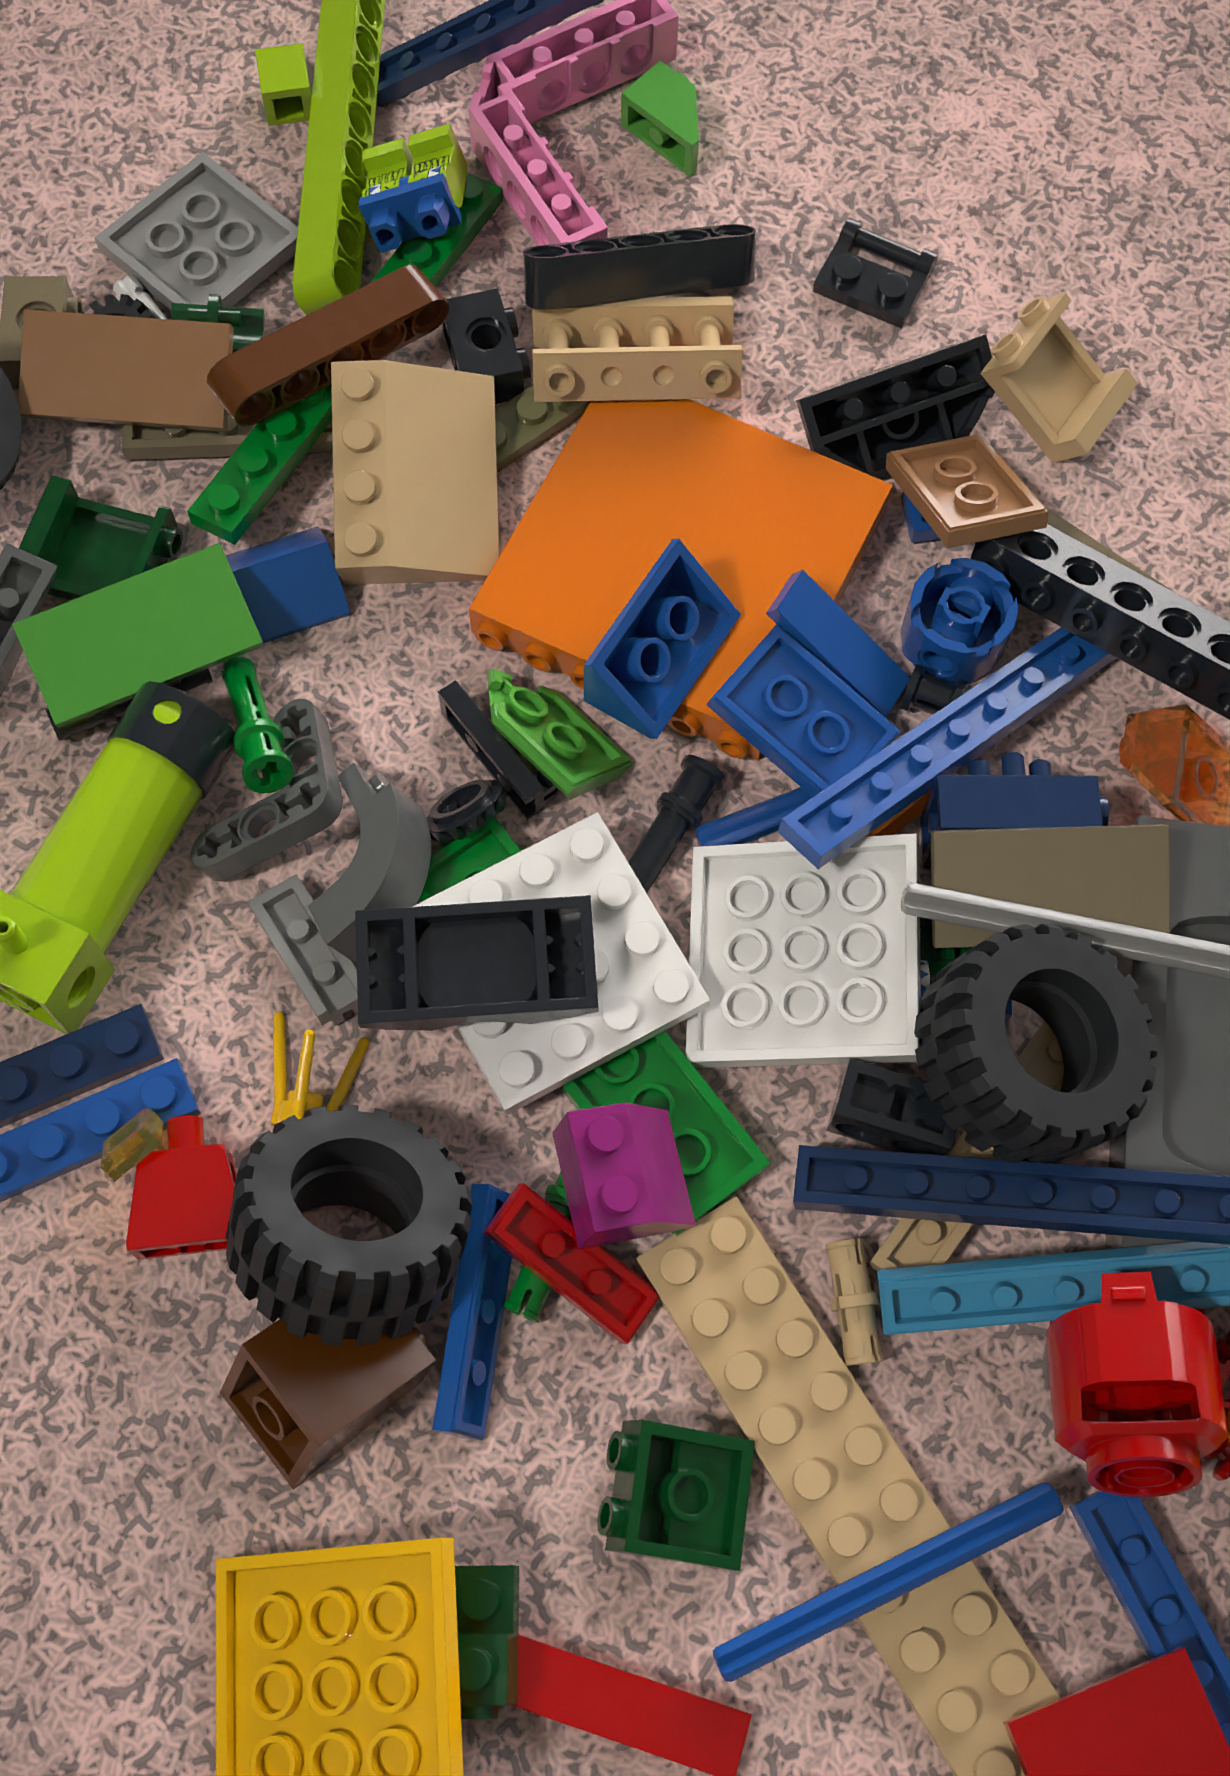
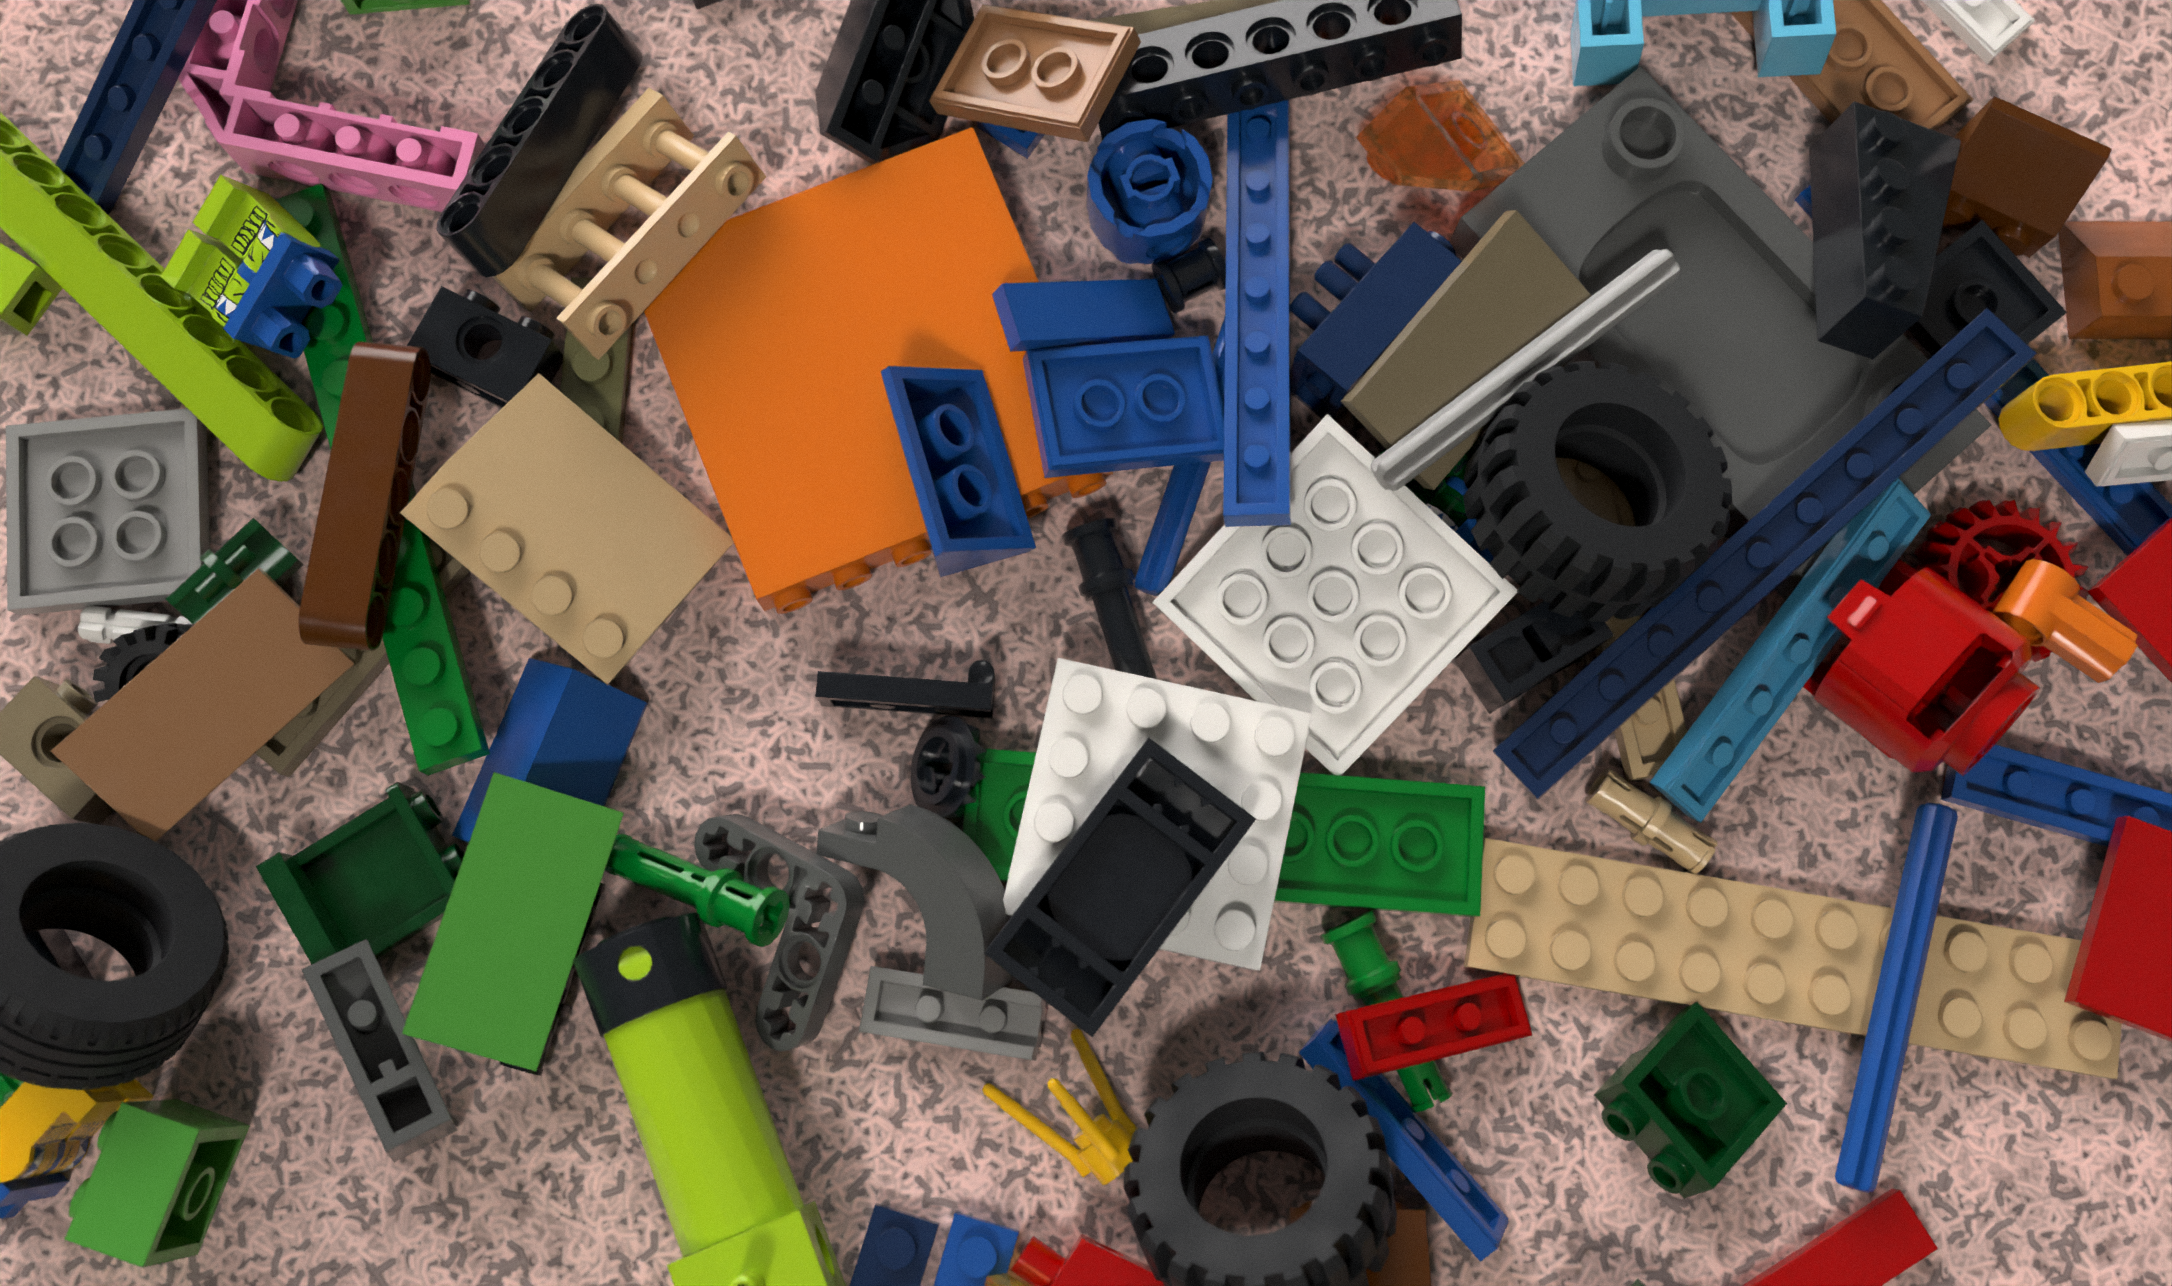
camera: 50 degrees left, 10 degrees up
(554, 736) = (941, 630): bright green tile -> none
(621, 1174) = (1406, 924): magenta slope -> none

